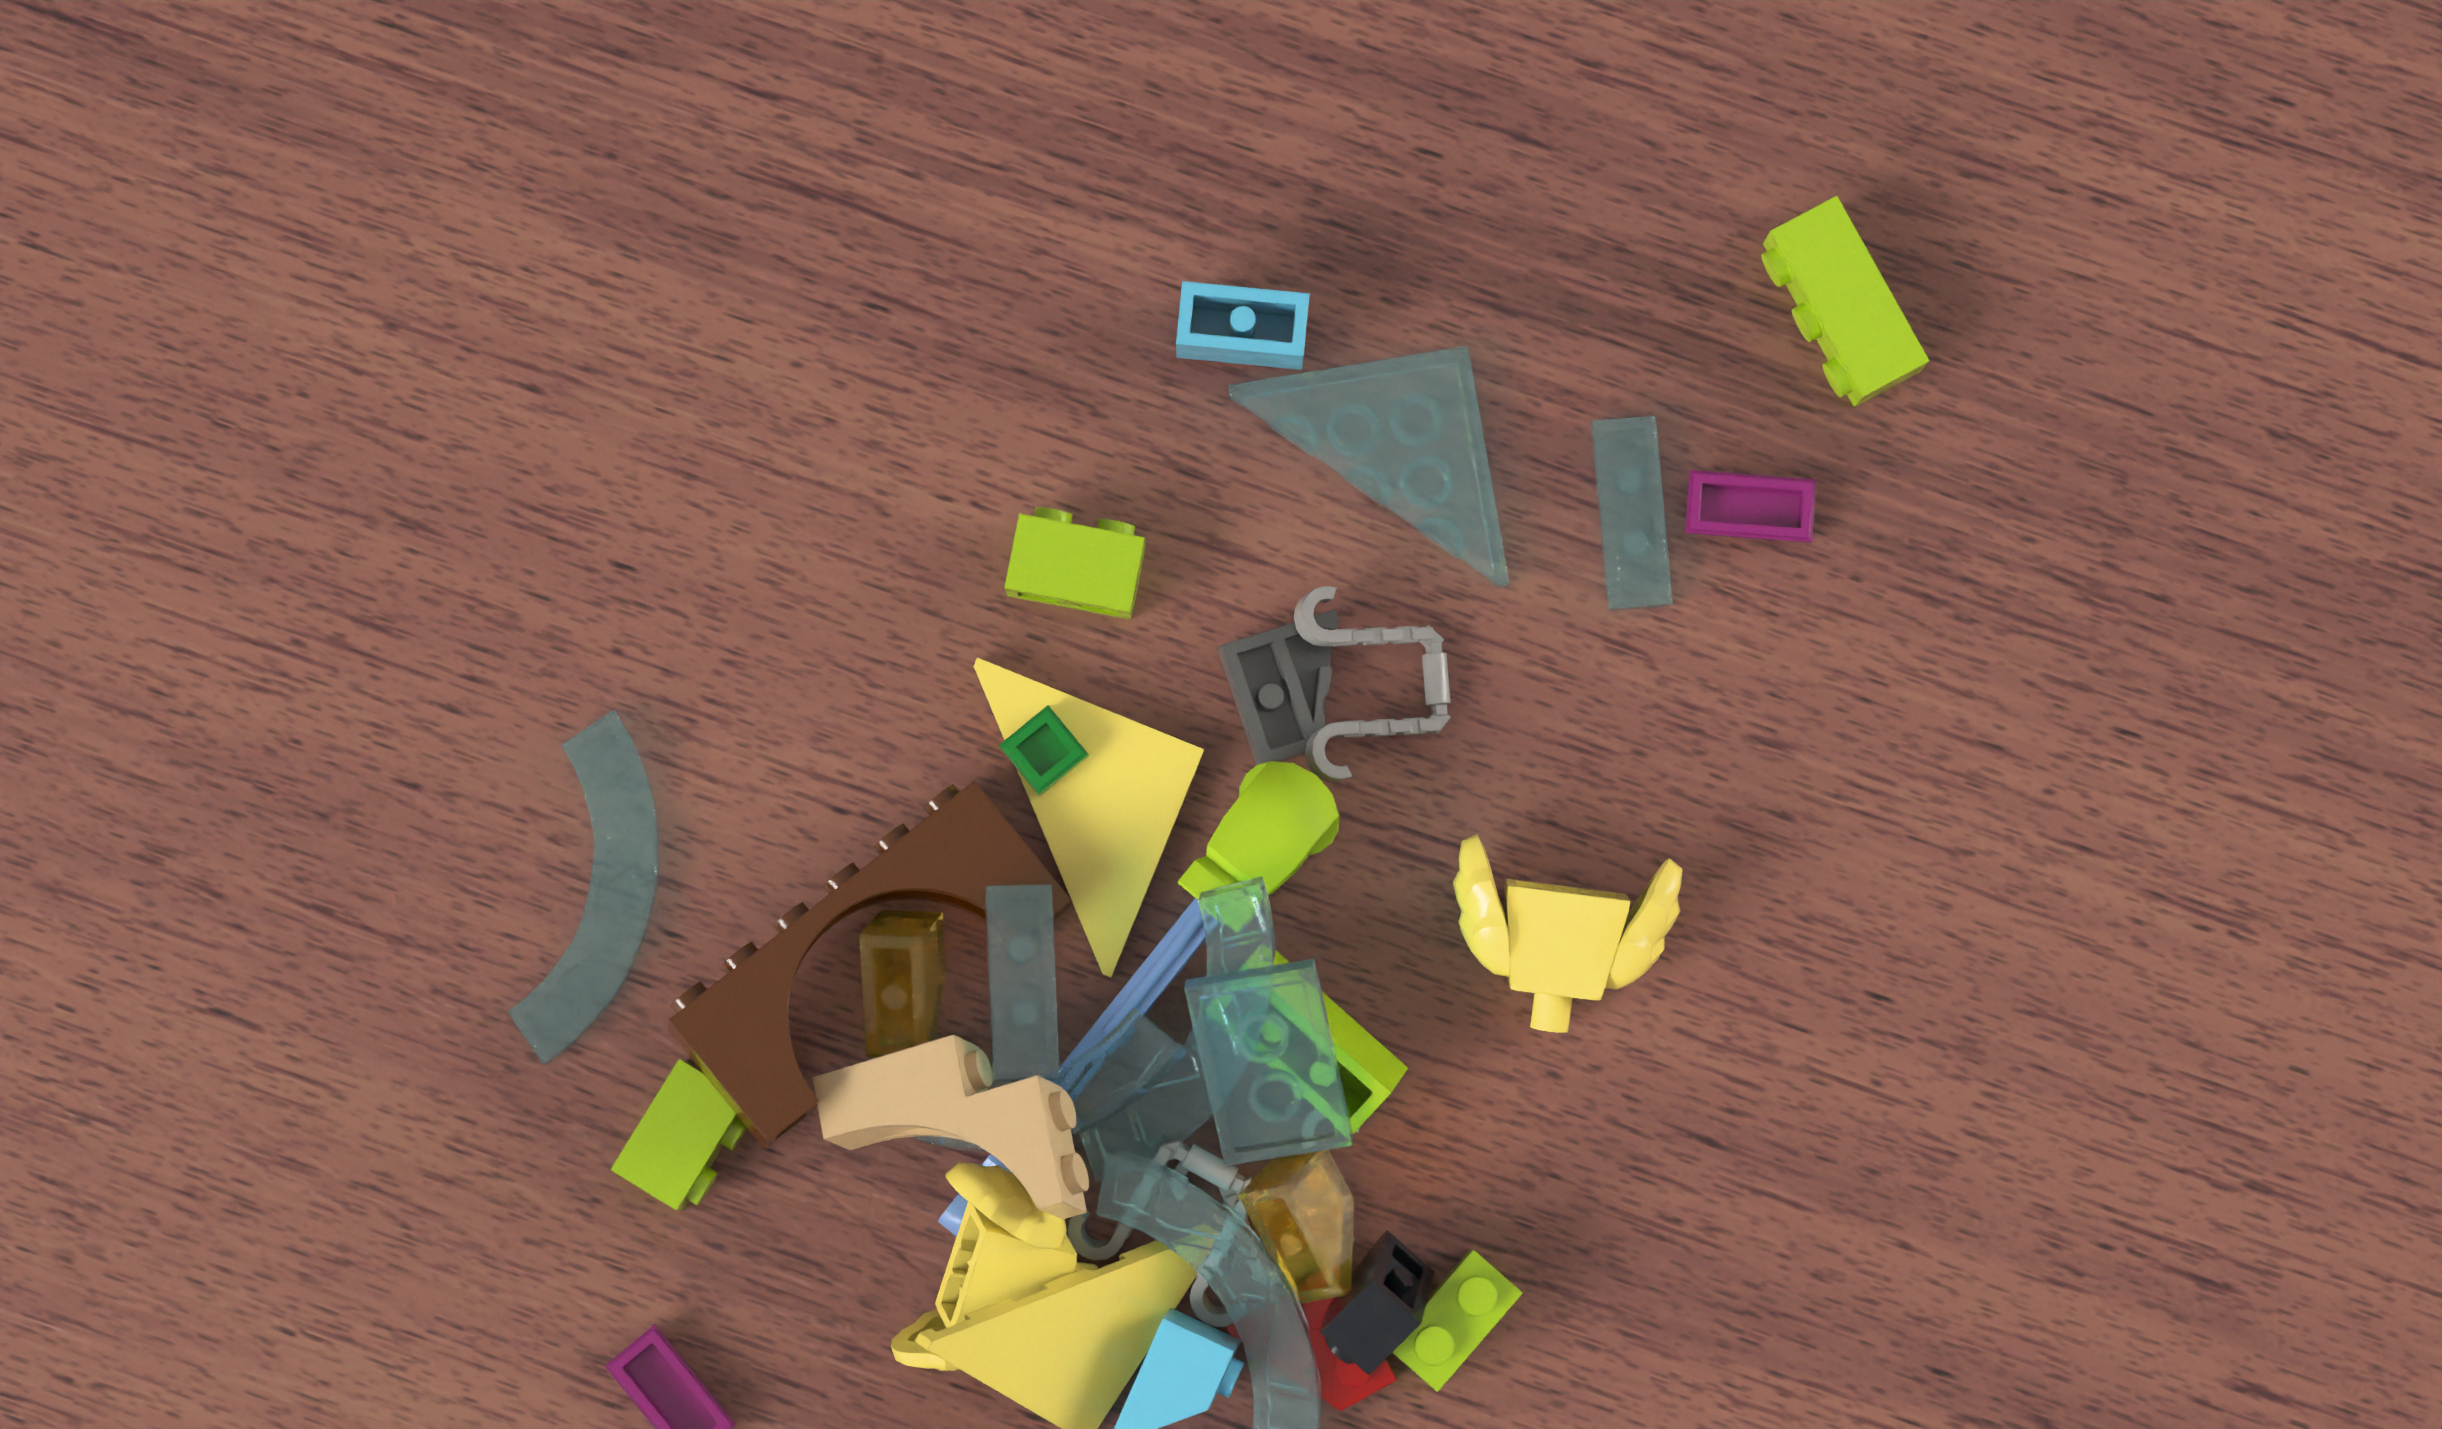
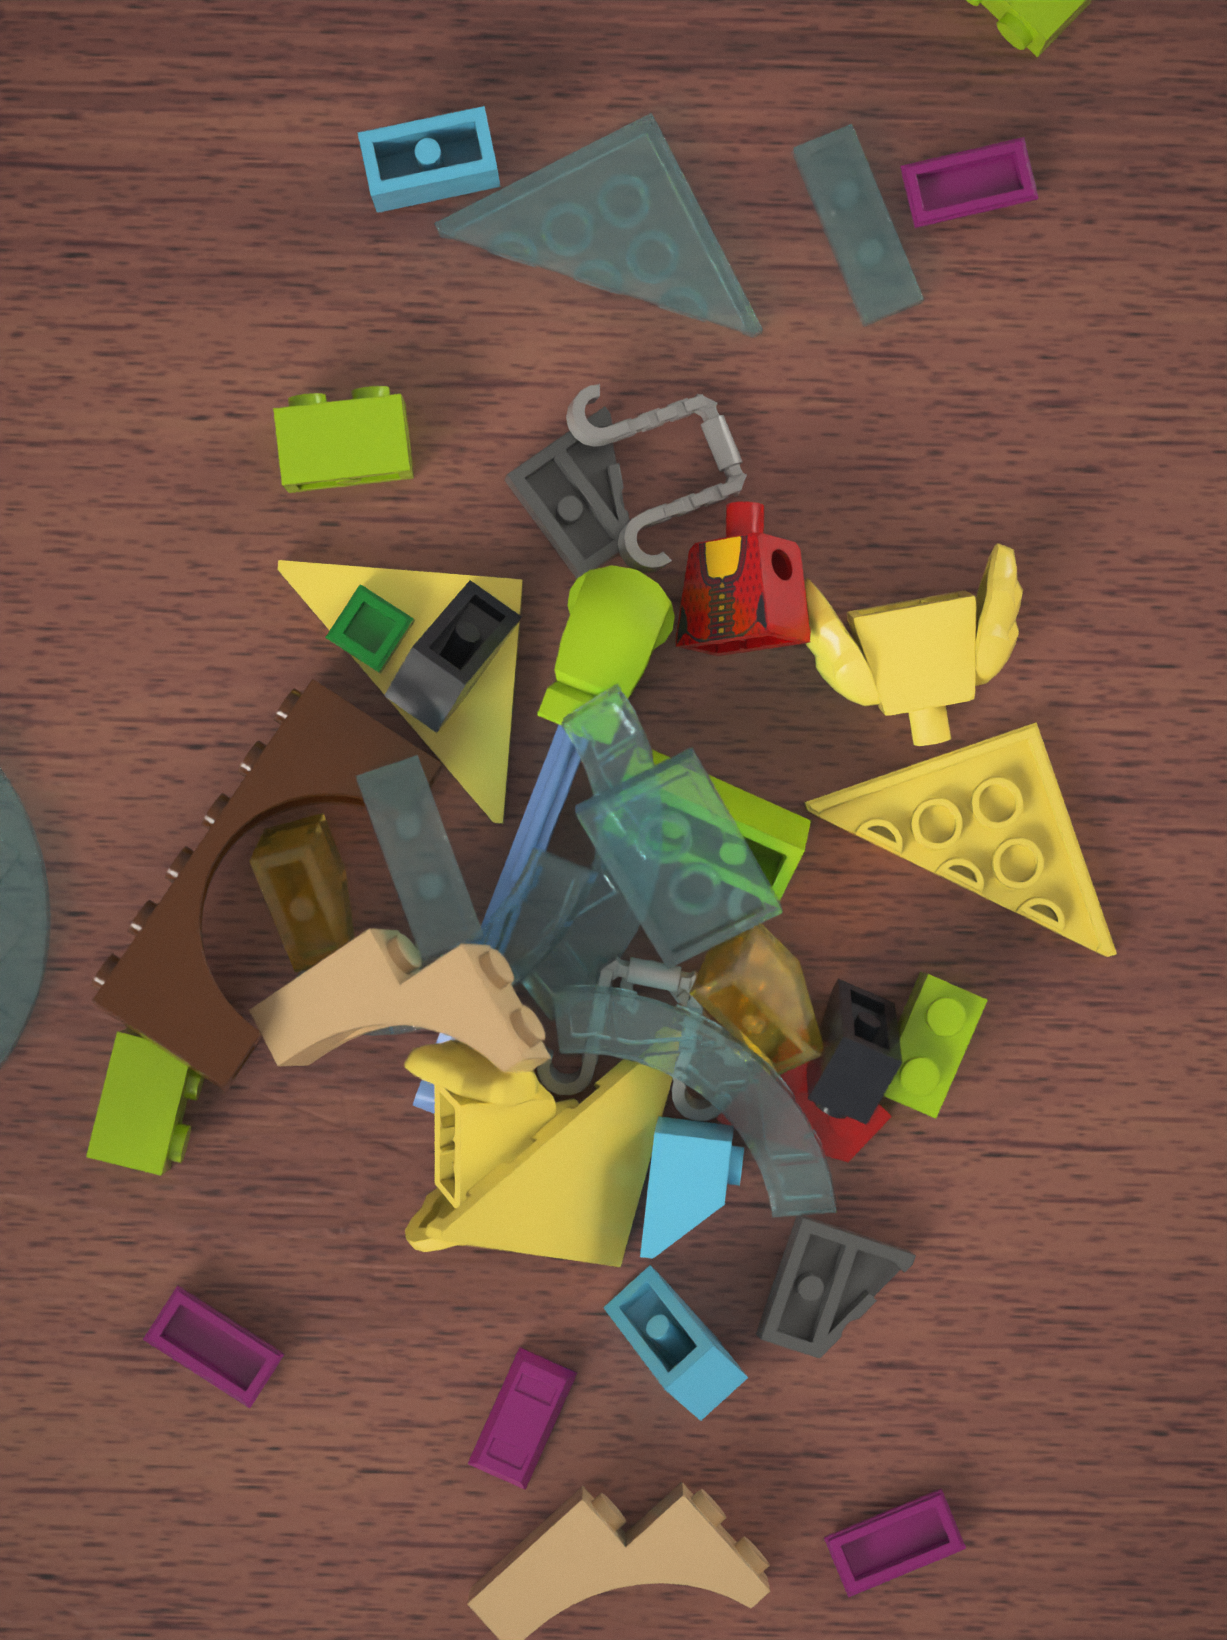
camera: 15 degrees left, 5 degrees up
(1114, 801) = (452, 656): none -> black slope
(1411, 826) = (743, 589): none -> red torso
(1576, 1124) = (987, 824): none -> light yellow tile

